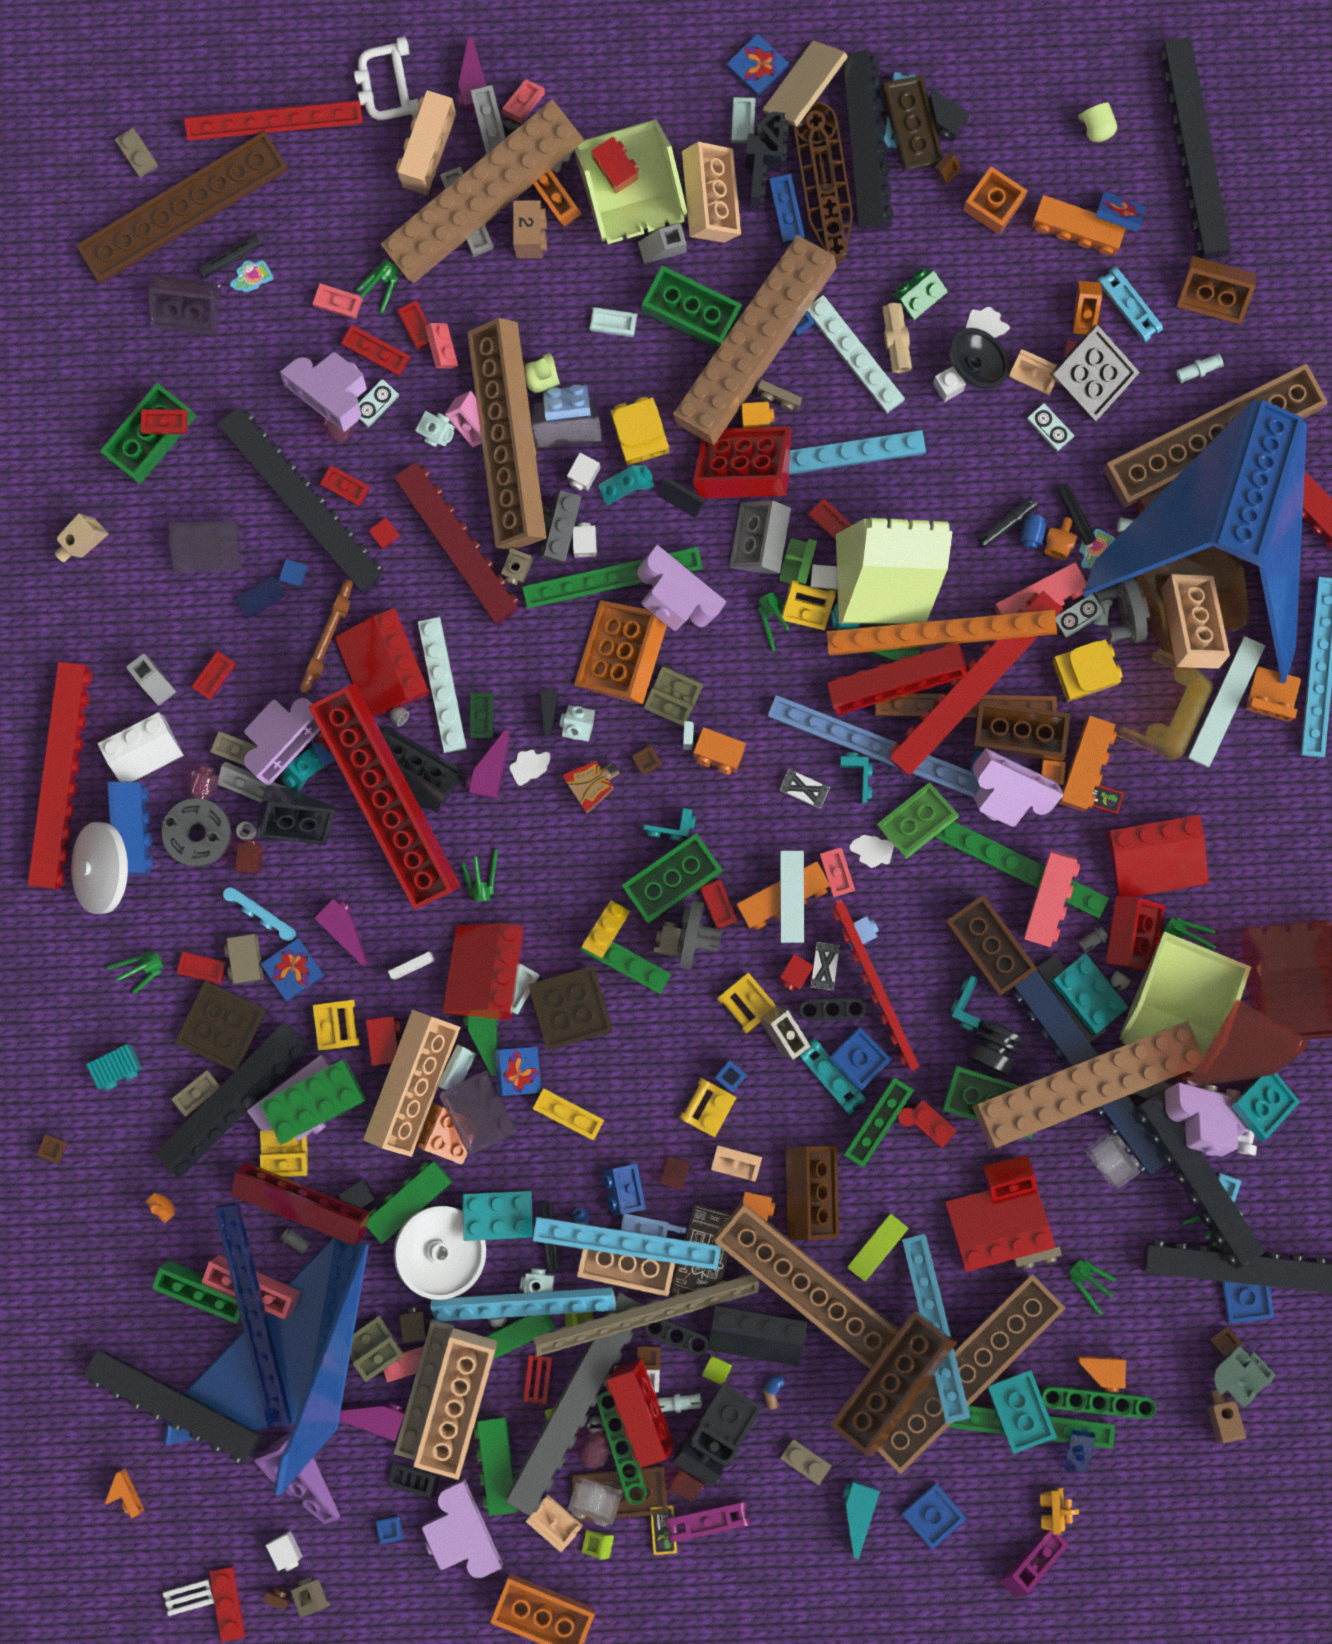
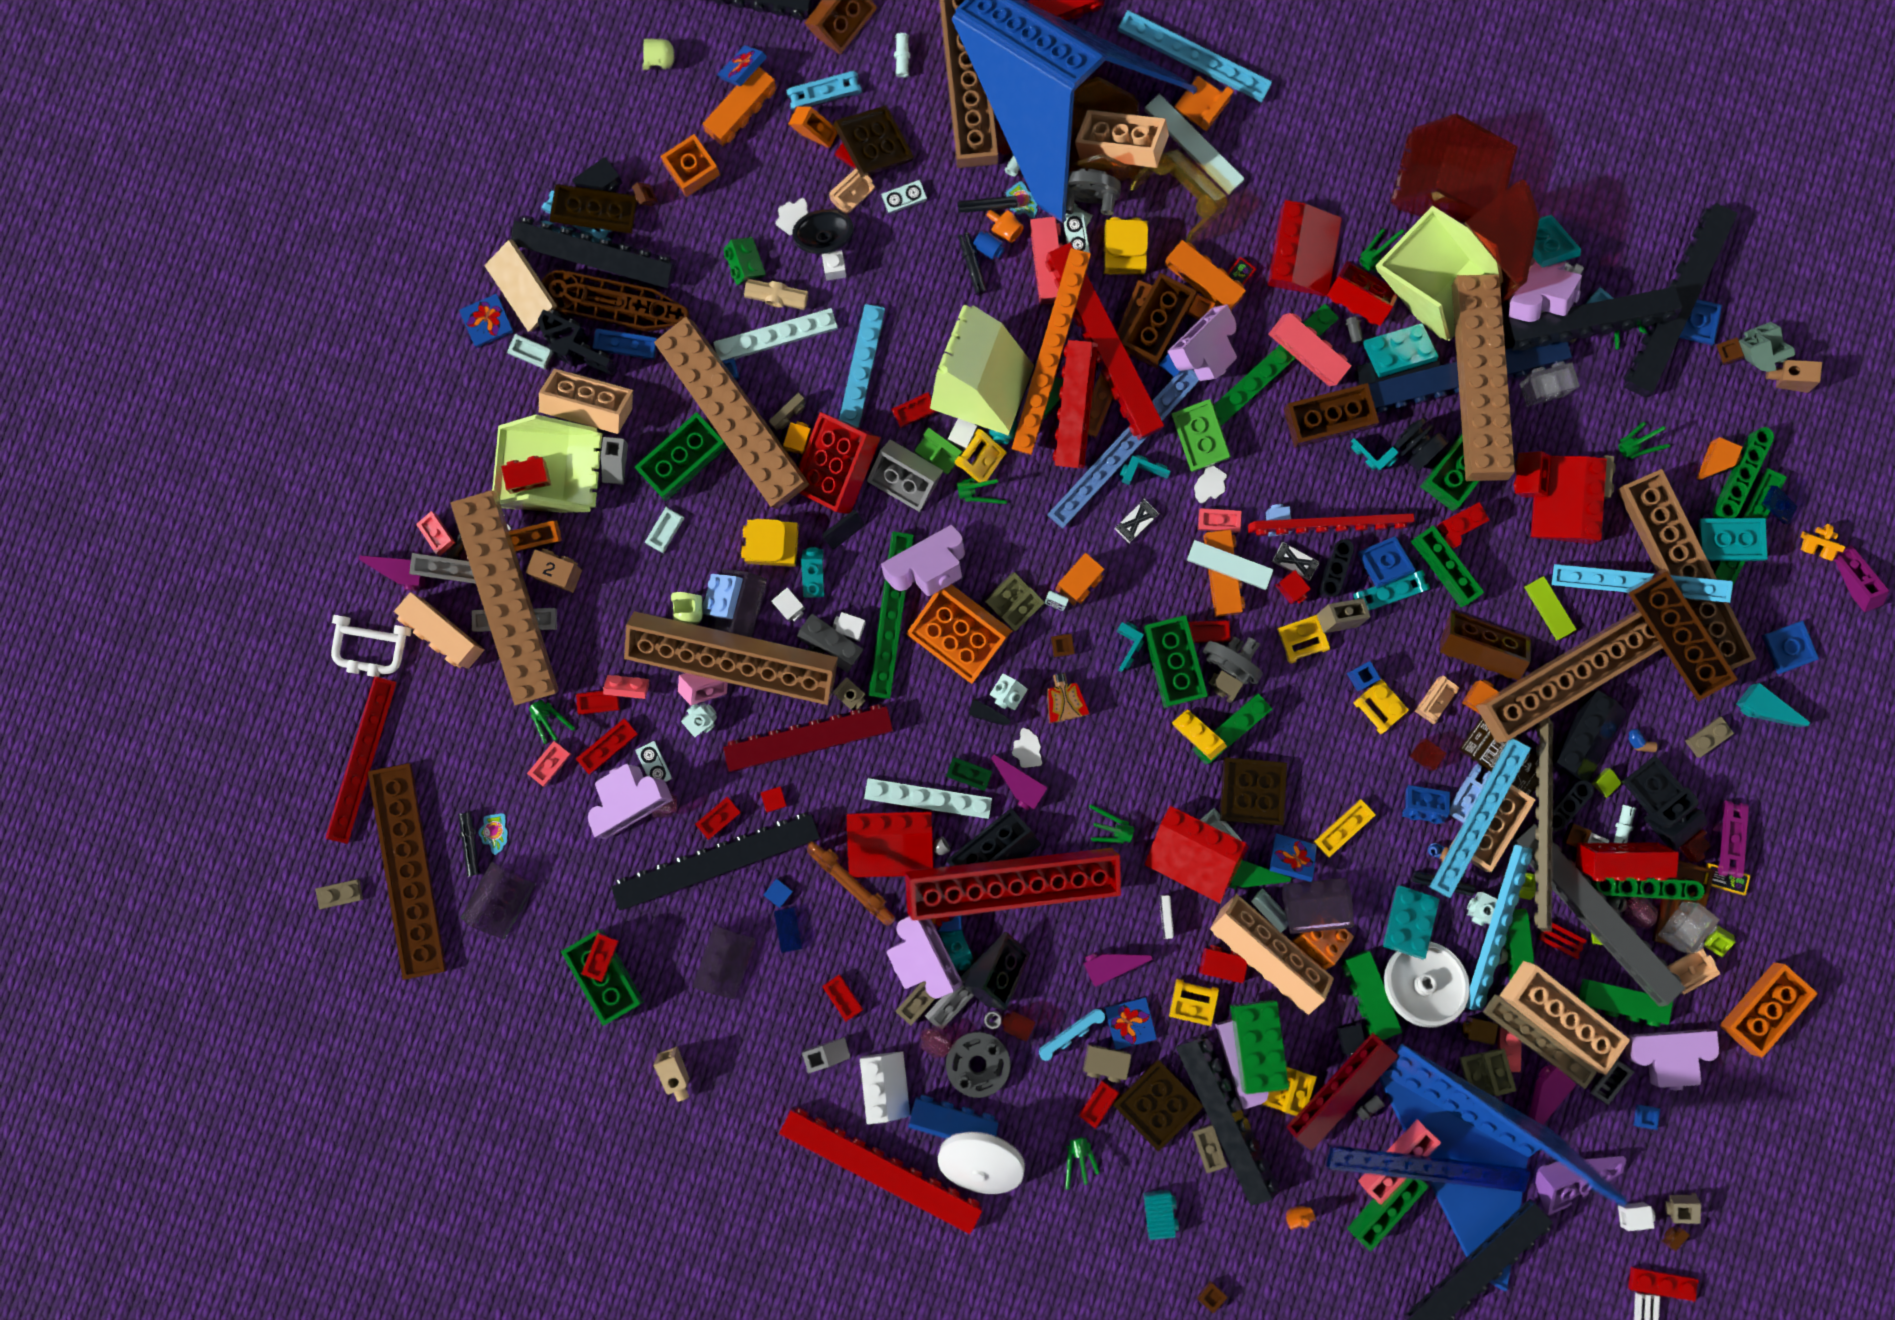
camera: 75 degrees left, 0 degrees up
(1120, 981) = (1397, 321): light grey hinge -> none

